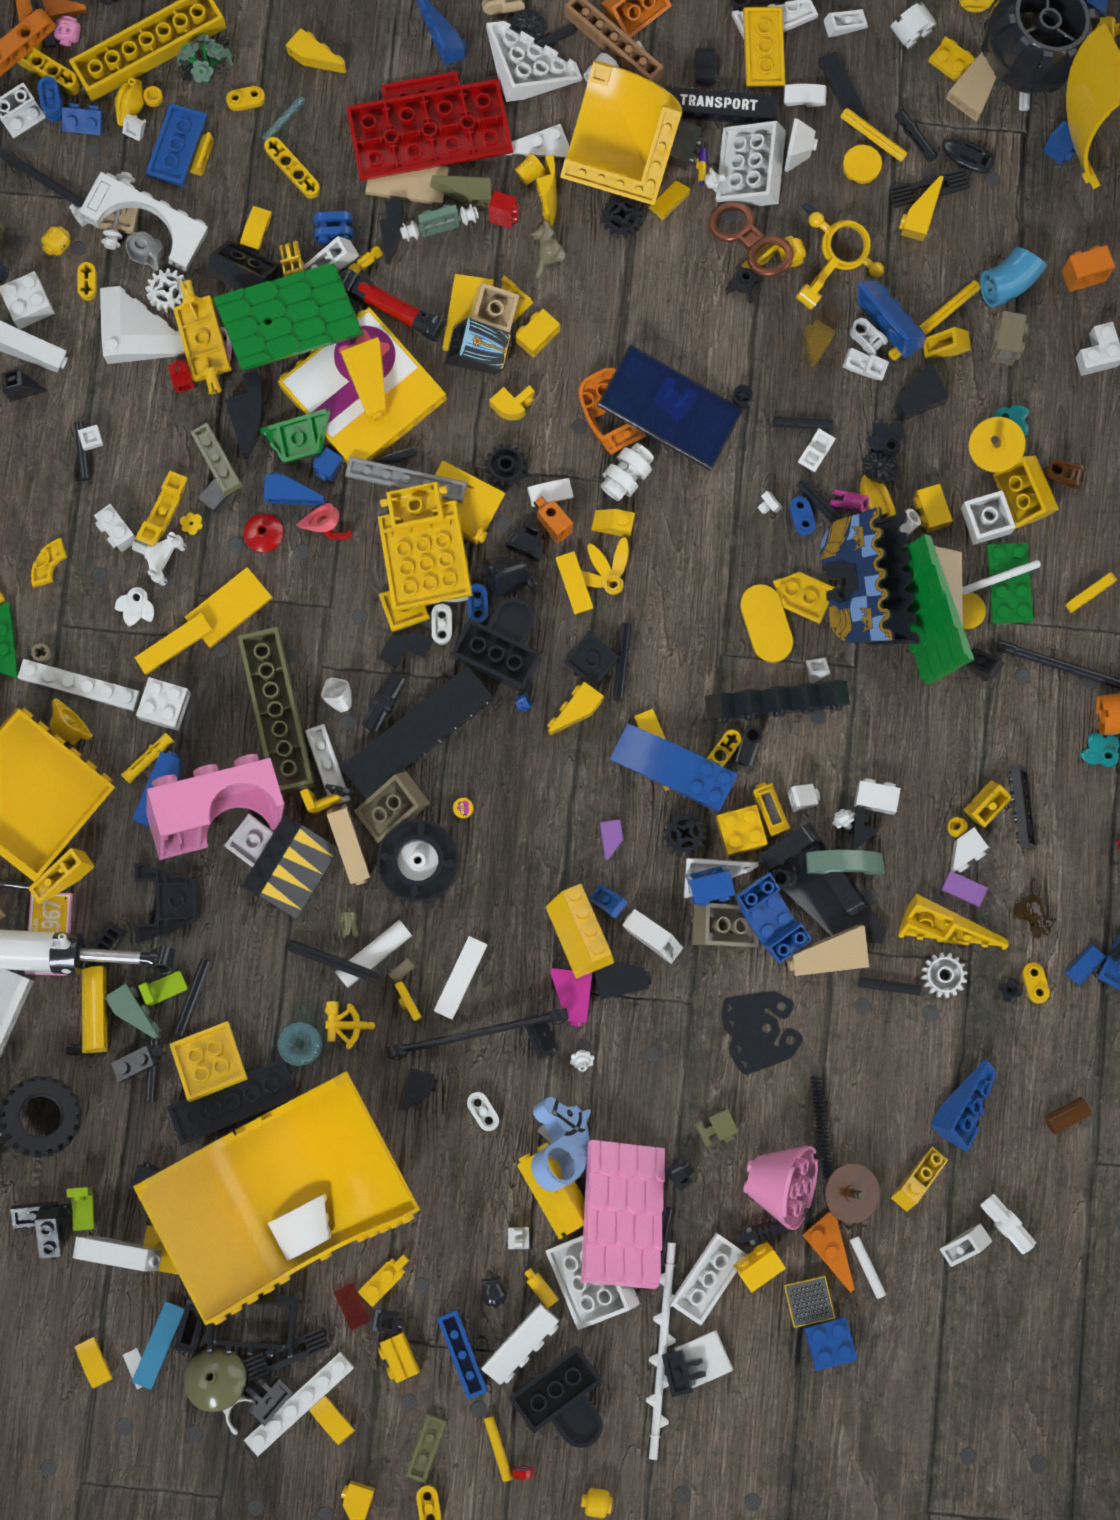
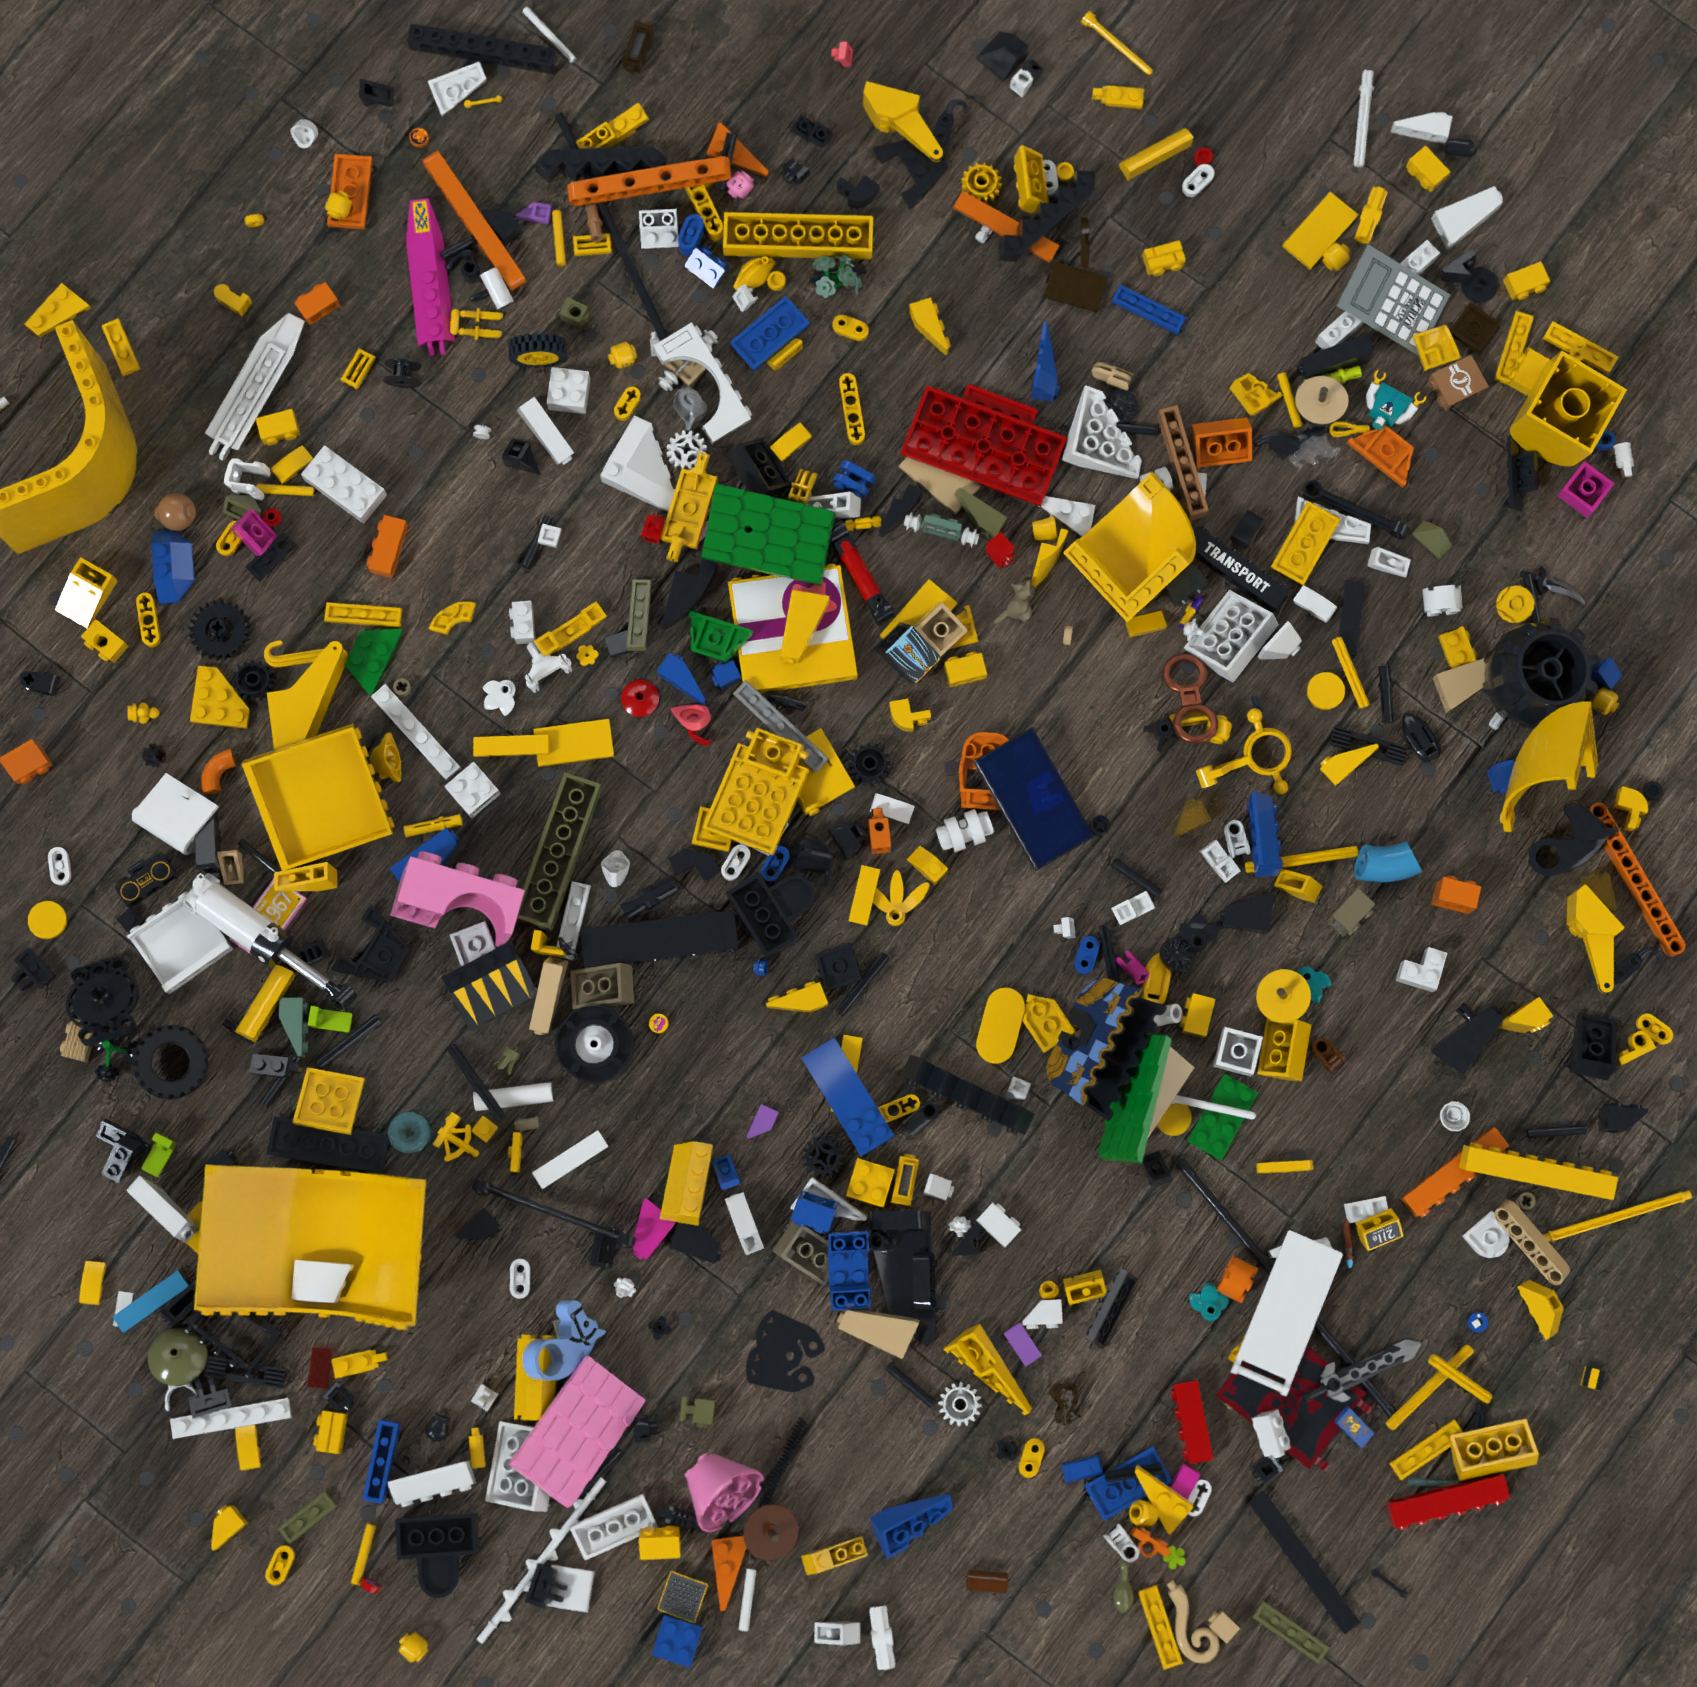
camera: 30 degrees right, 0 degrees up
(284, 118) = (871, 363): clear light blue piece -> none
(366, 998) = (484, 1129): none -> yellow plate
(608, 249) = (1067, 635): none -> tan tile
(615, 217) = (1103, 617): black gear -> none
(637, 1082) = (654, 1327): none -> black plate
(845, 861) = (937, 1261): sand green slope -> none

